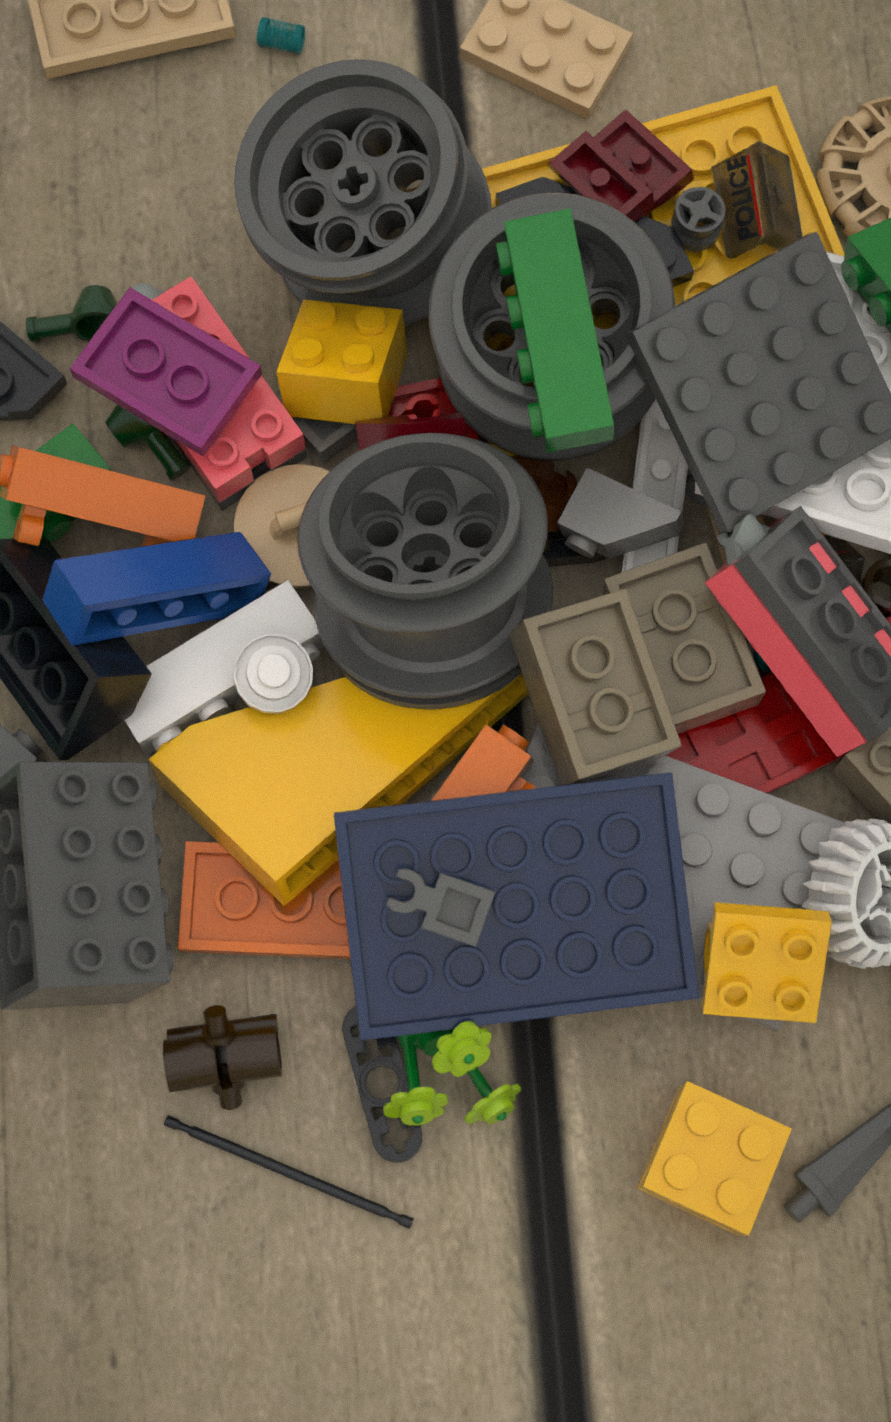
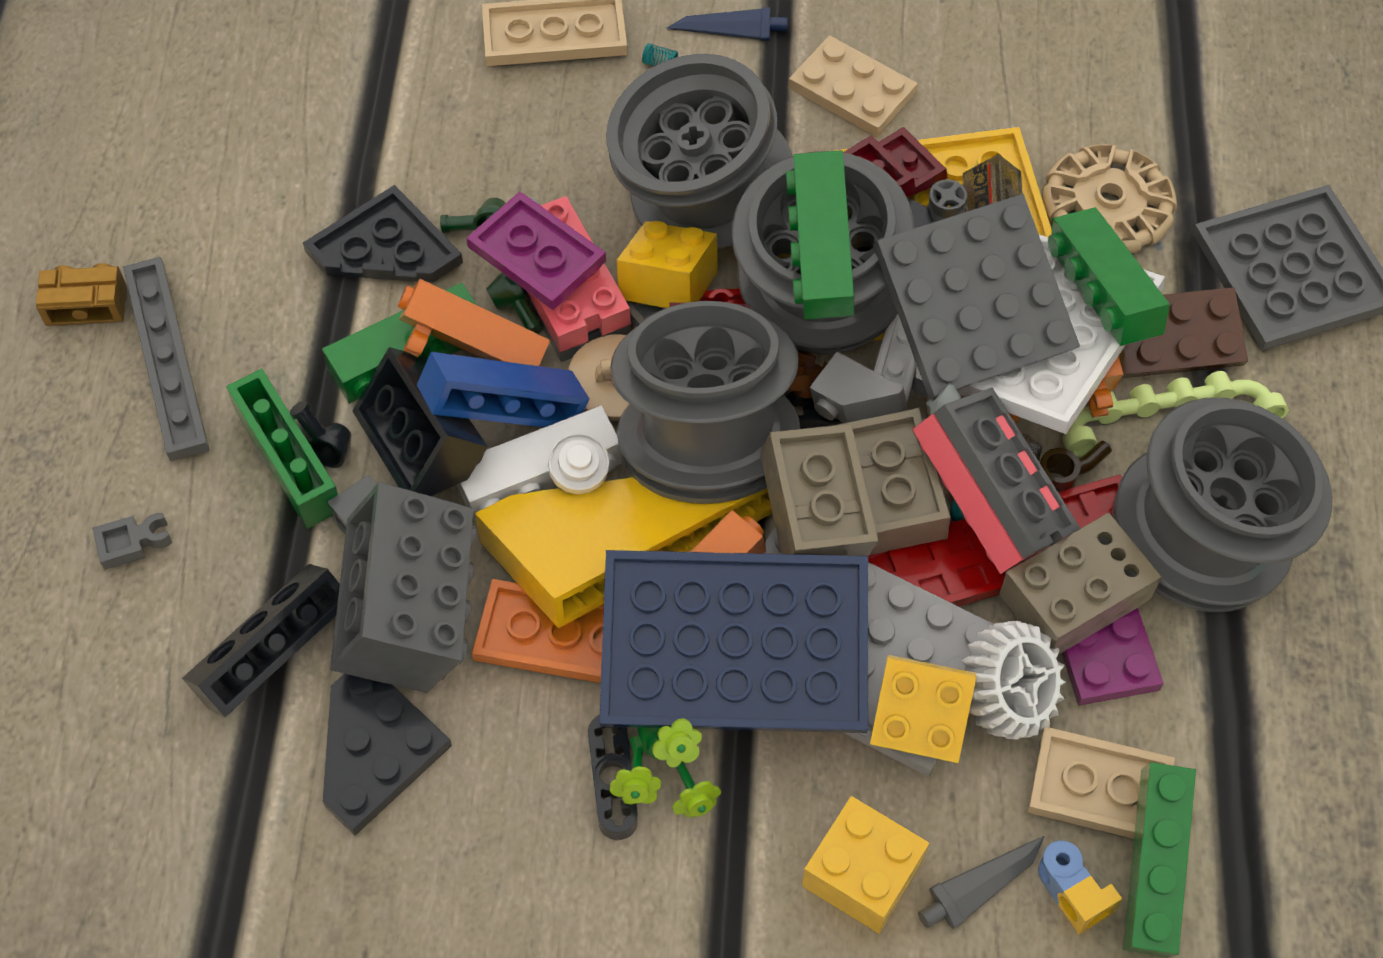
camera: 10 degrees right, 15 degrees down
(74, 1092) = (374, 749): none -> black plate
(222, 1054) = (492, 733): dark brown pin -> none
(288, 1171) = (534, 836): black piece -> none
(450, 907) = (683, 627): dark grey plate -> none

